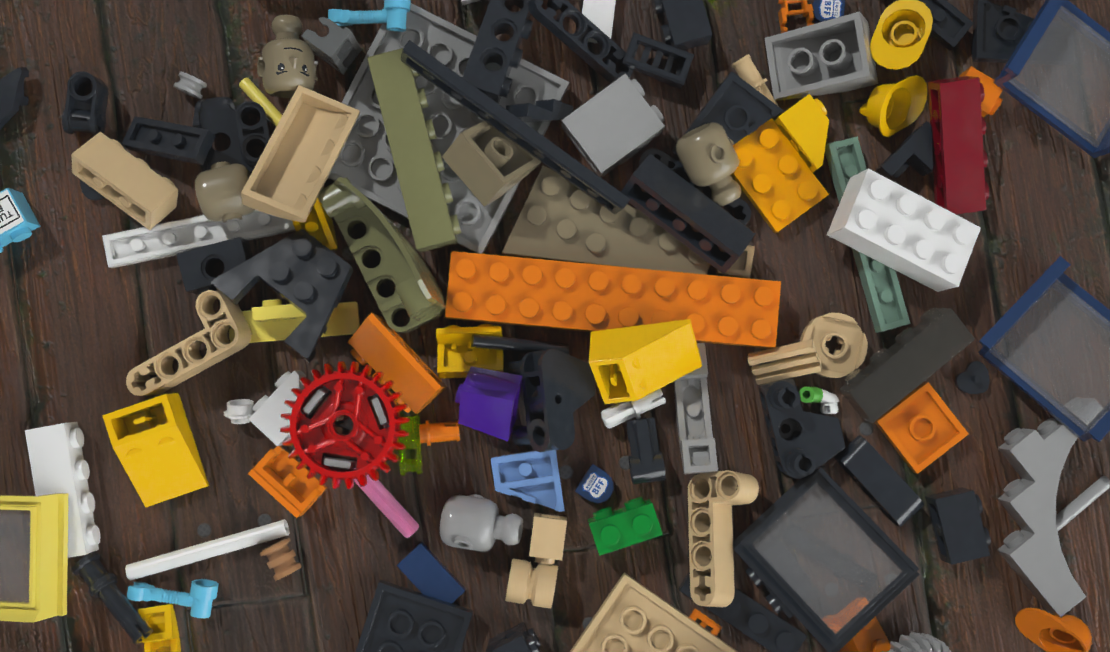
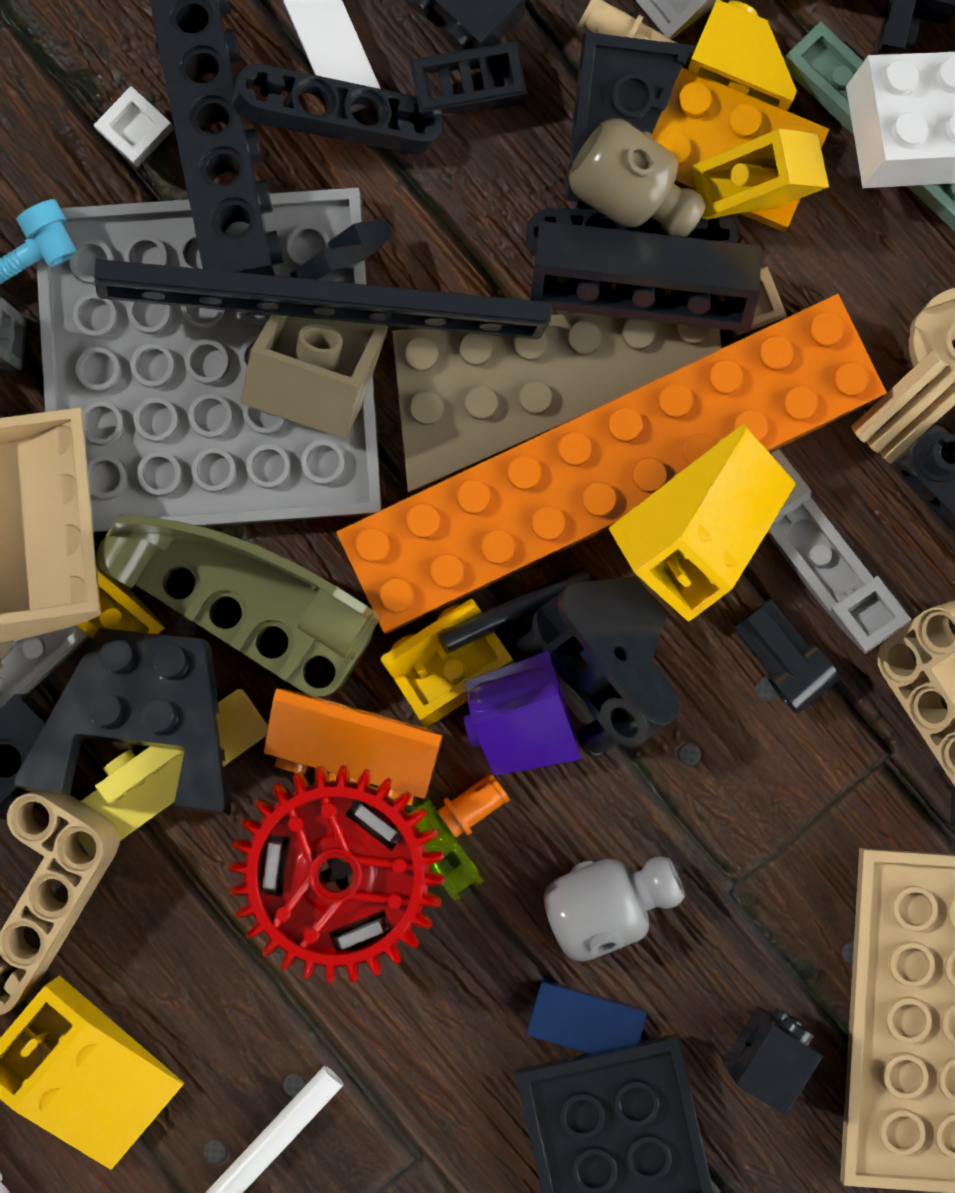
camera: 25 degrees left, 0 degrees up
(239, 411) = (165, 947): white plate -> none
(270, 408) = (212, 920): white slope -> none
(281, 559) = (354, 1126): medium nougat bush -> none
(286, 483) = (295, 1009): orange hinge -> none
(389, 507) = (466, 956): bright pink axle -> none
(413, 152) = (194, 420): olive brick -> none
(529, 476) = (643, 792): medium blue wing -> none
(531, 583) = (738, 943): tan wheel -> none
(547, 538) = (721, 864): tan brick -> none
(595, 485) = (744, 747): tile -> none
(613, 125) = (461, 211): light grey brick -> none
(624, 526) = (822, 780): green brick -> none
(627, 410) = (724, 613): white axle -> none
(778, 196) = (761, 173): none -> yellow slope

